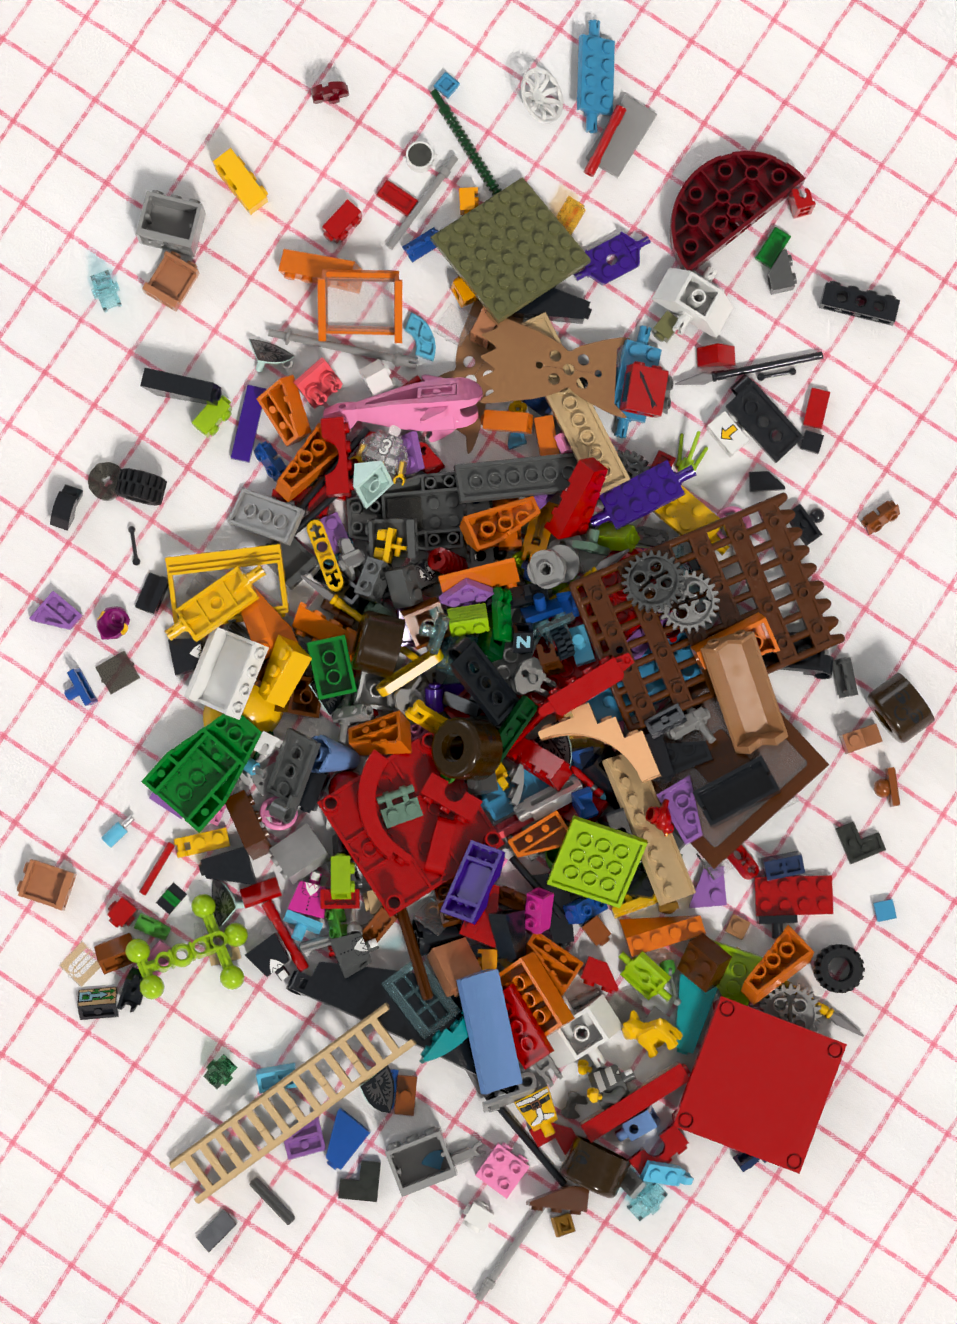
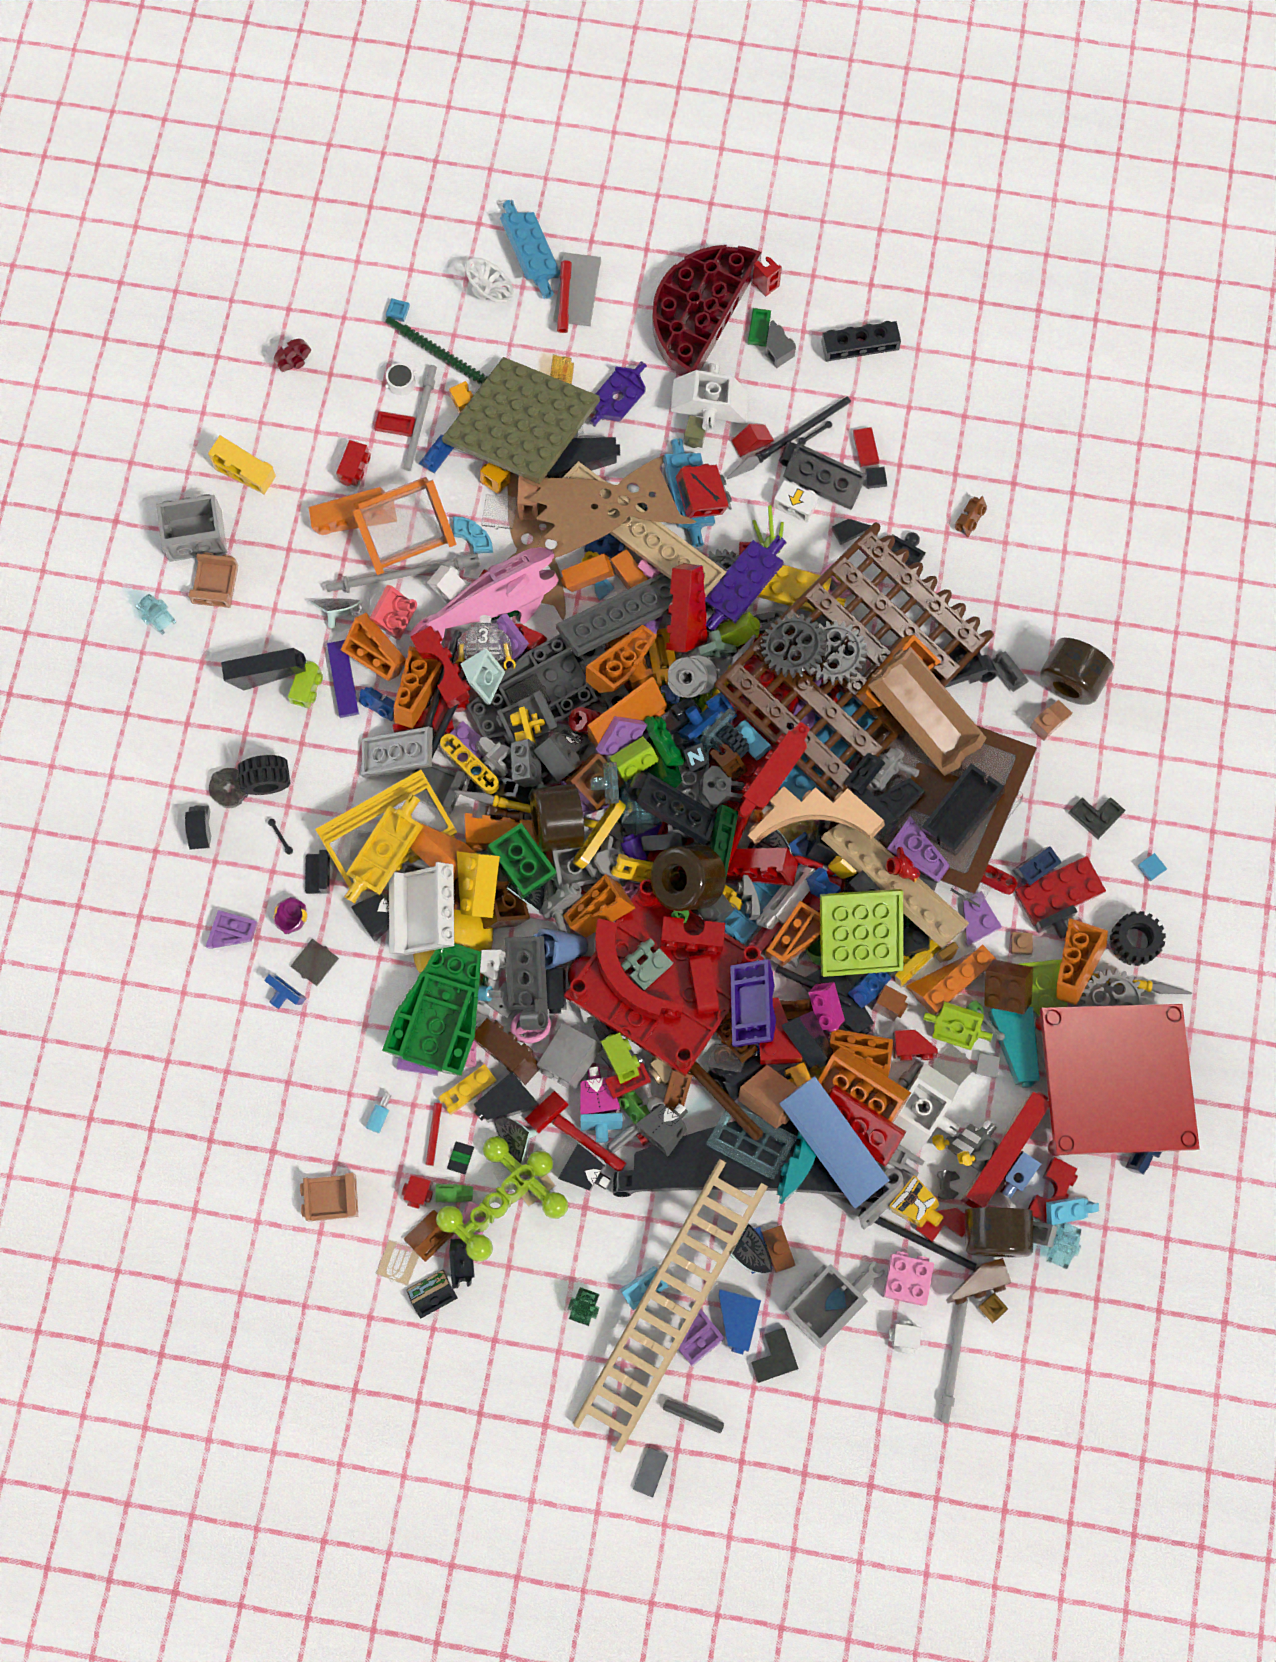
camera: 20 degrees left, 10 degrees down
(607, 795) = (841, 868): none -> yellow slope
(651, 1034) = (988, 1079): yellow animal -> none
(888, 787) = (1100, 751): dark orange tile -> none

